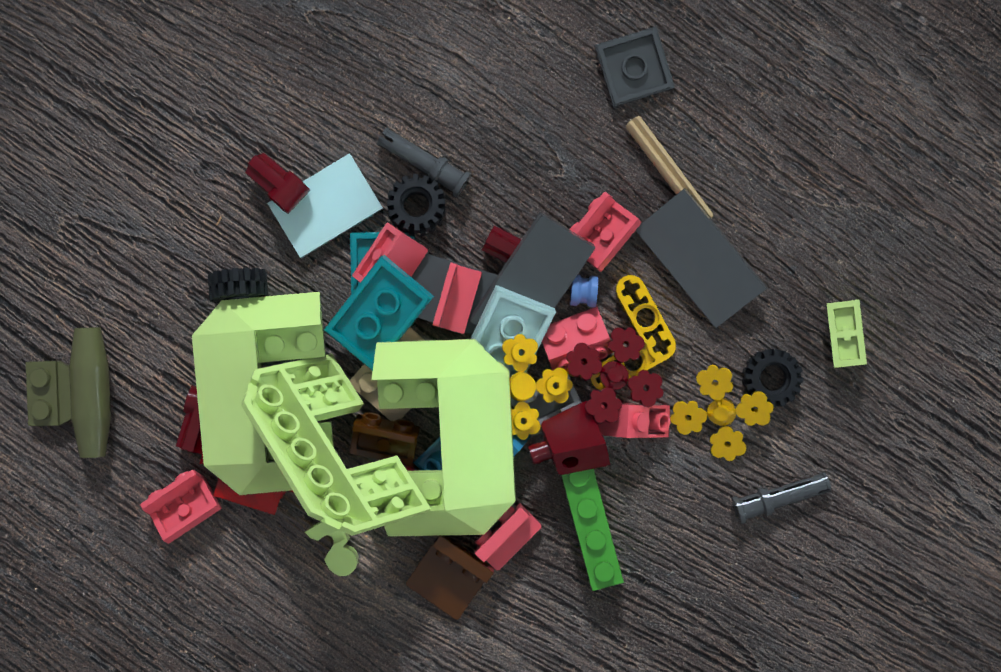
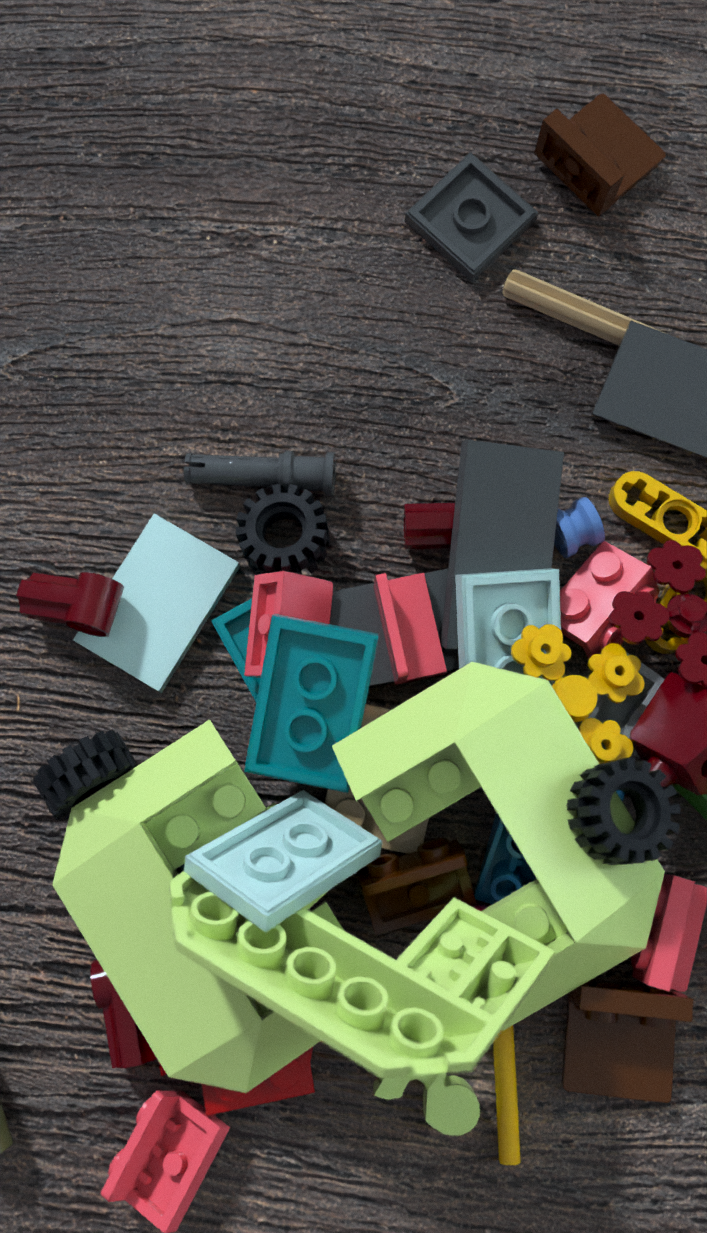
camera: 30 degrees left, 10 degrees down
(320, 387) = (282, 859): none -> light aqua tile
(374, 570) = (506, 1098): none -> yellow bar
(523, 468) = (650, 805): none -> black tyre
(606, 227) = (559, 423): coral bracket -> none
(734, 68) = (597, 152): none -> reddish brown bracket

